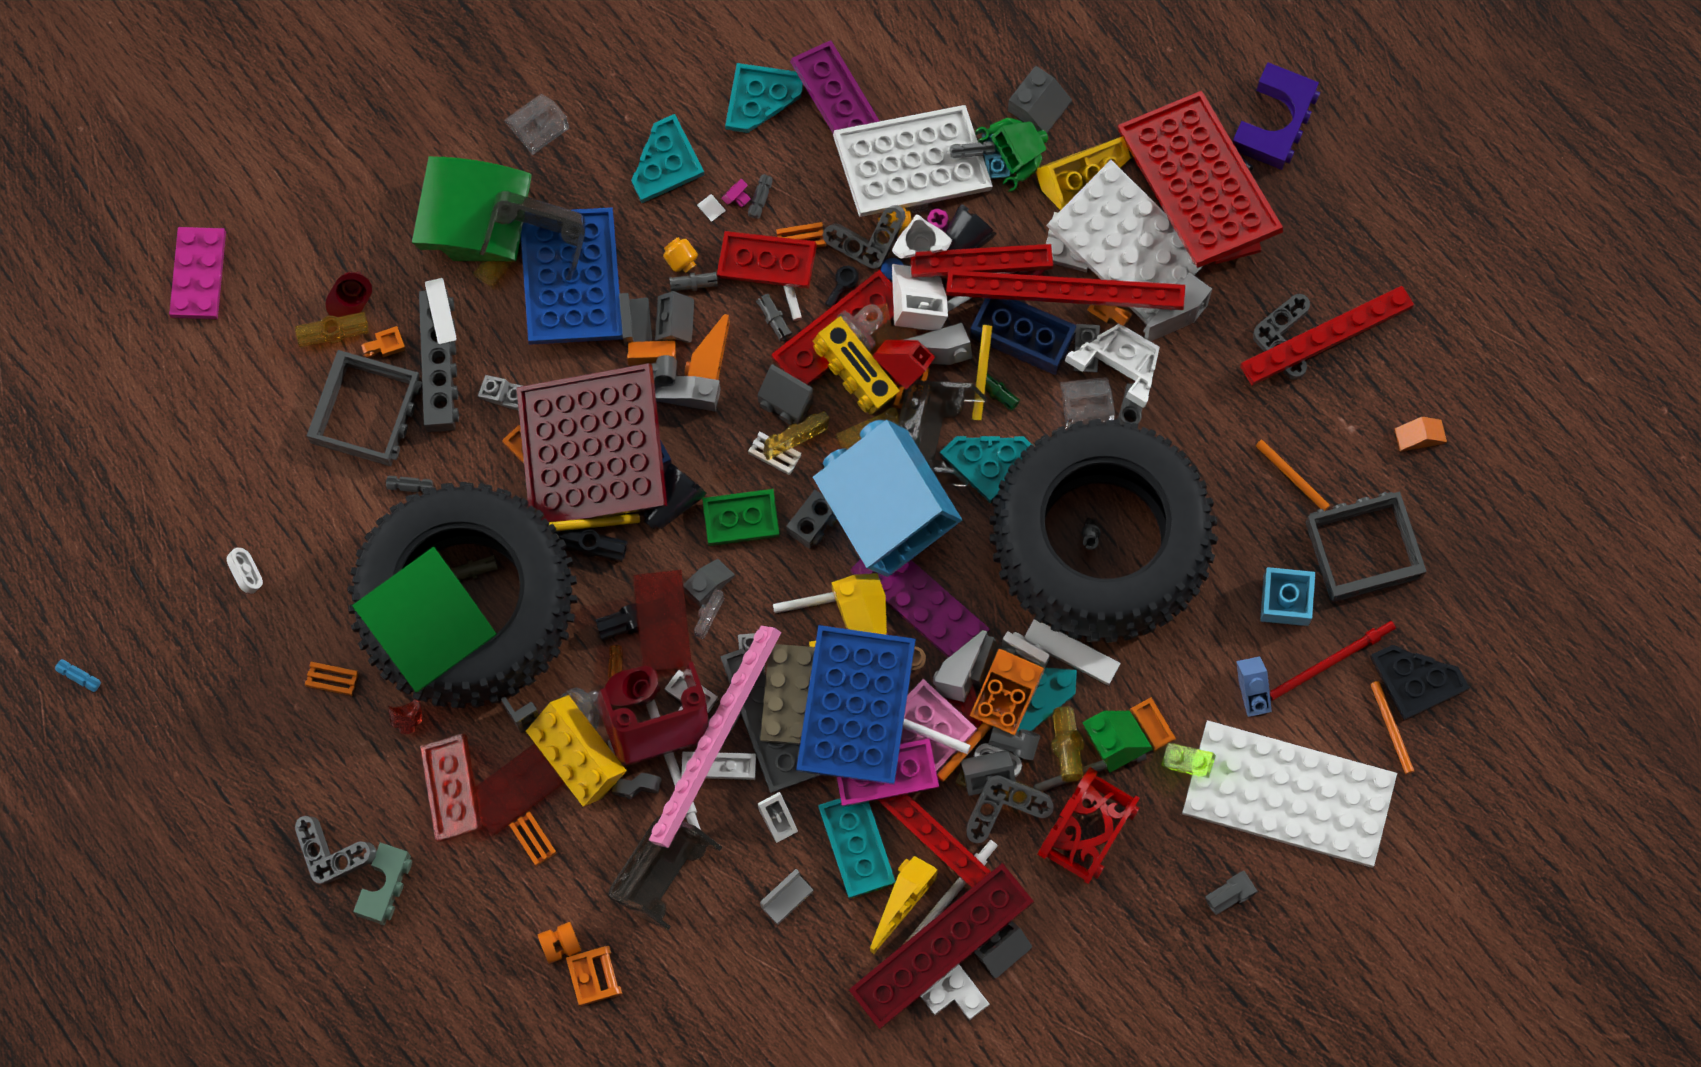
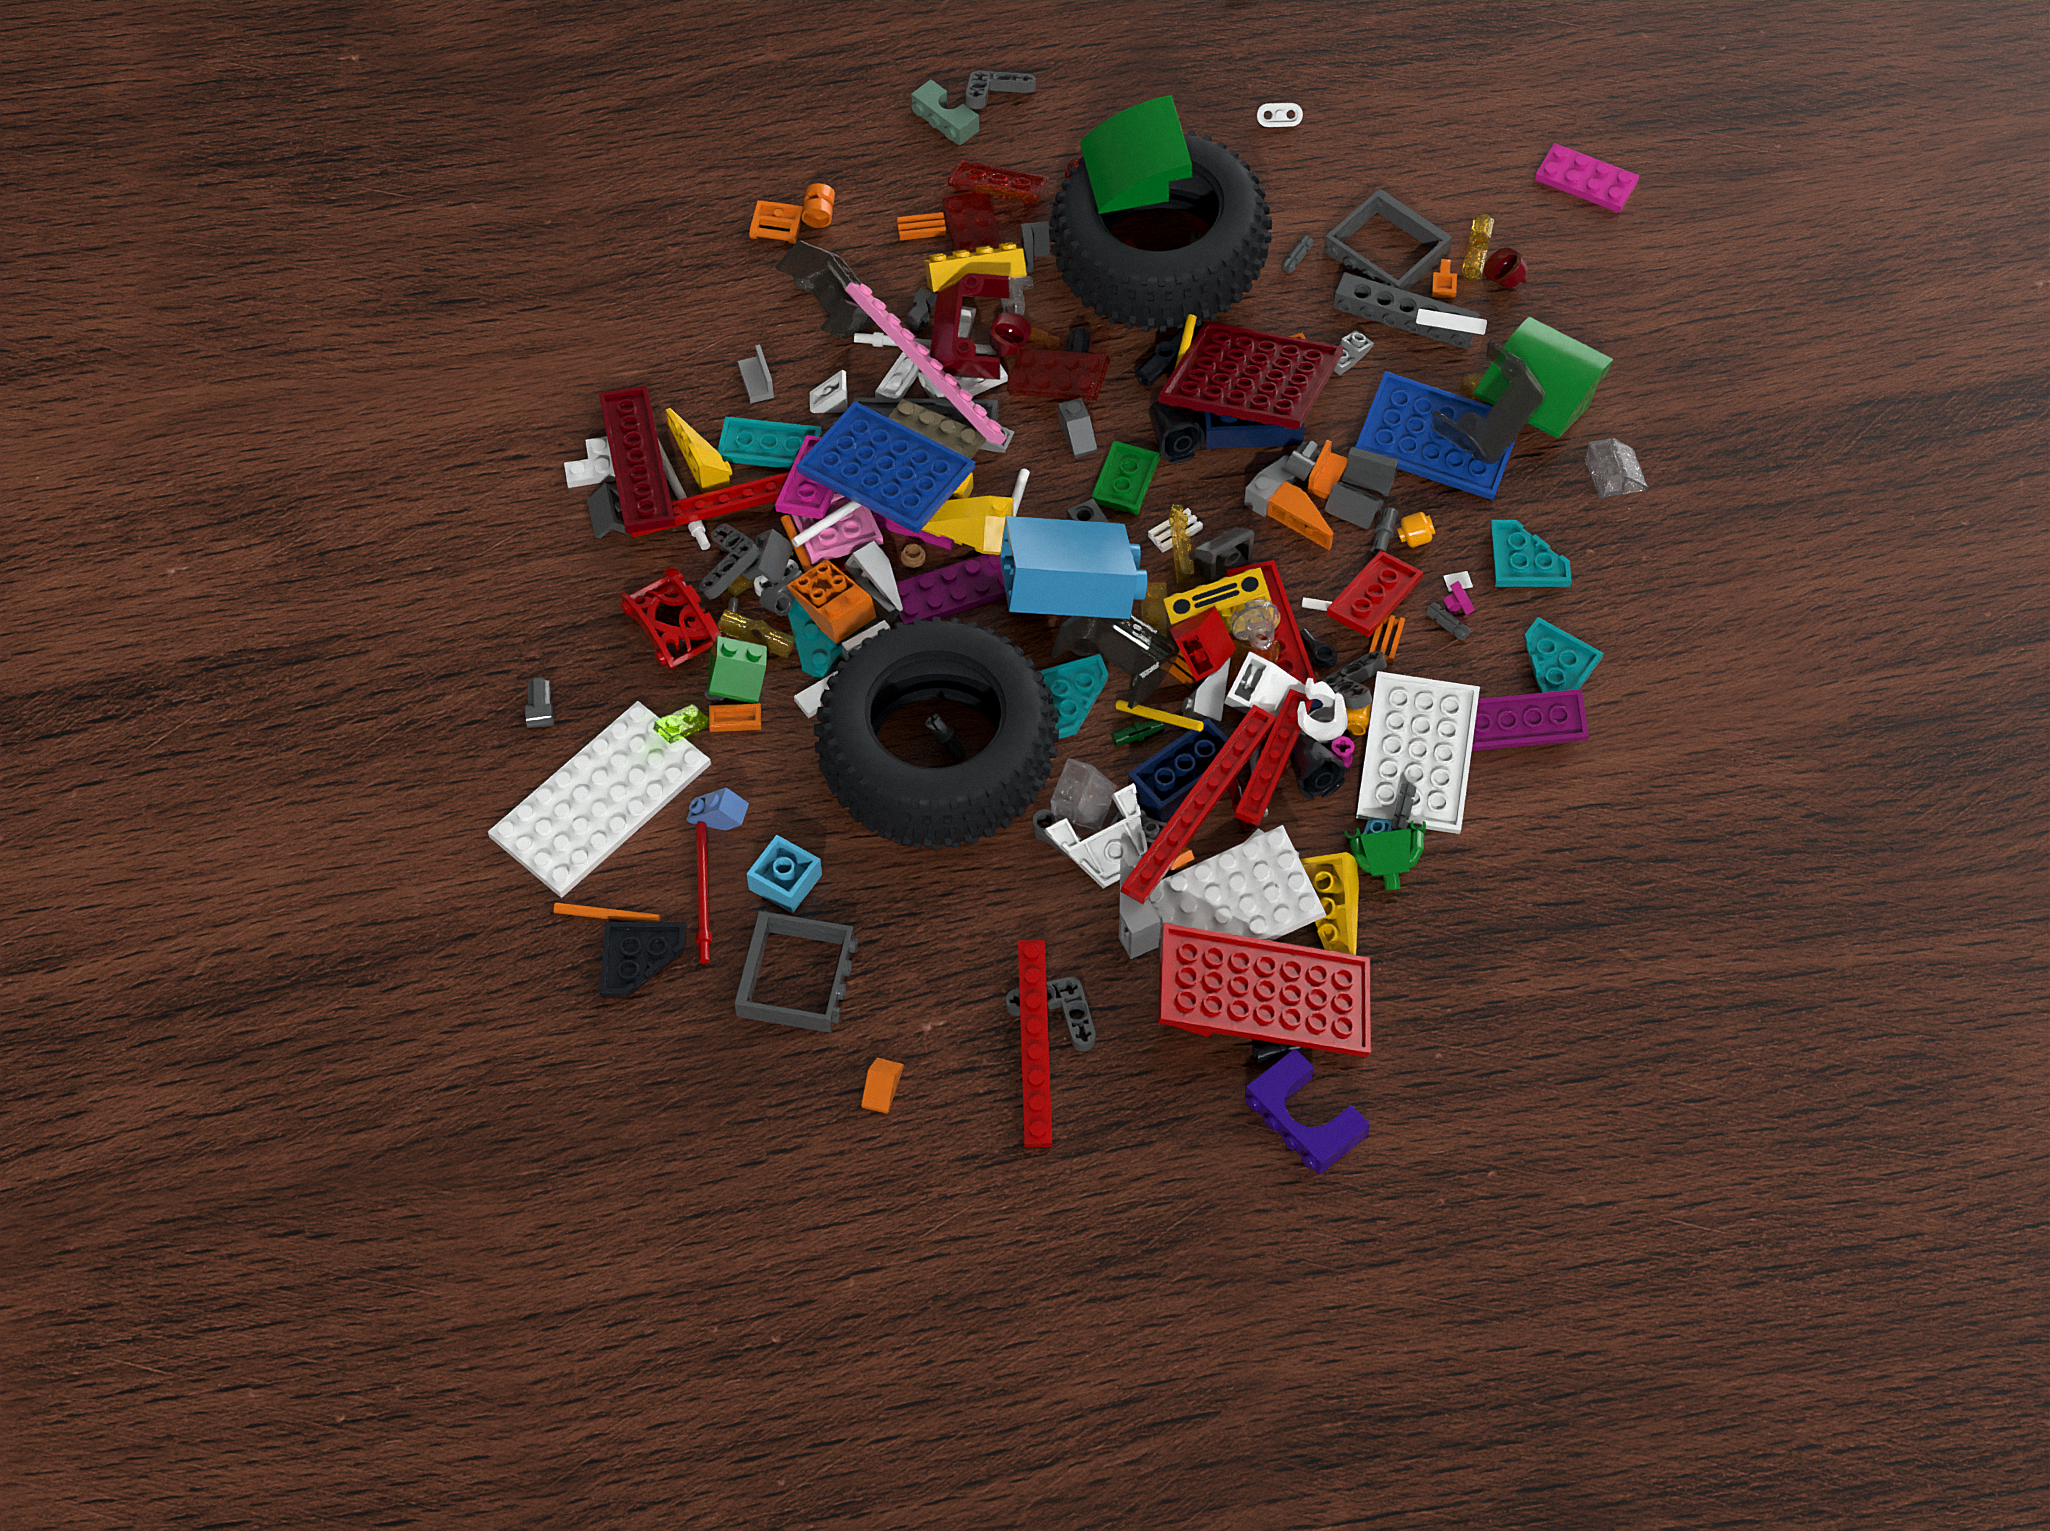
camera: 115 degrees right, 15 degrees down
(708, 613) = (1046, 417): clear plate -> none
(774, 317) = (1312, 580): dark grey pin -> none
(1039, 100) = (1433, 898): dark grey slope -> none
(1292, 475) = (907, 947): orange bar -> none

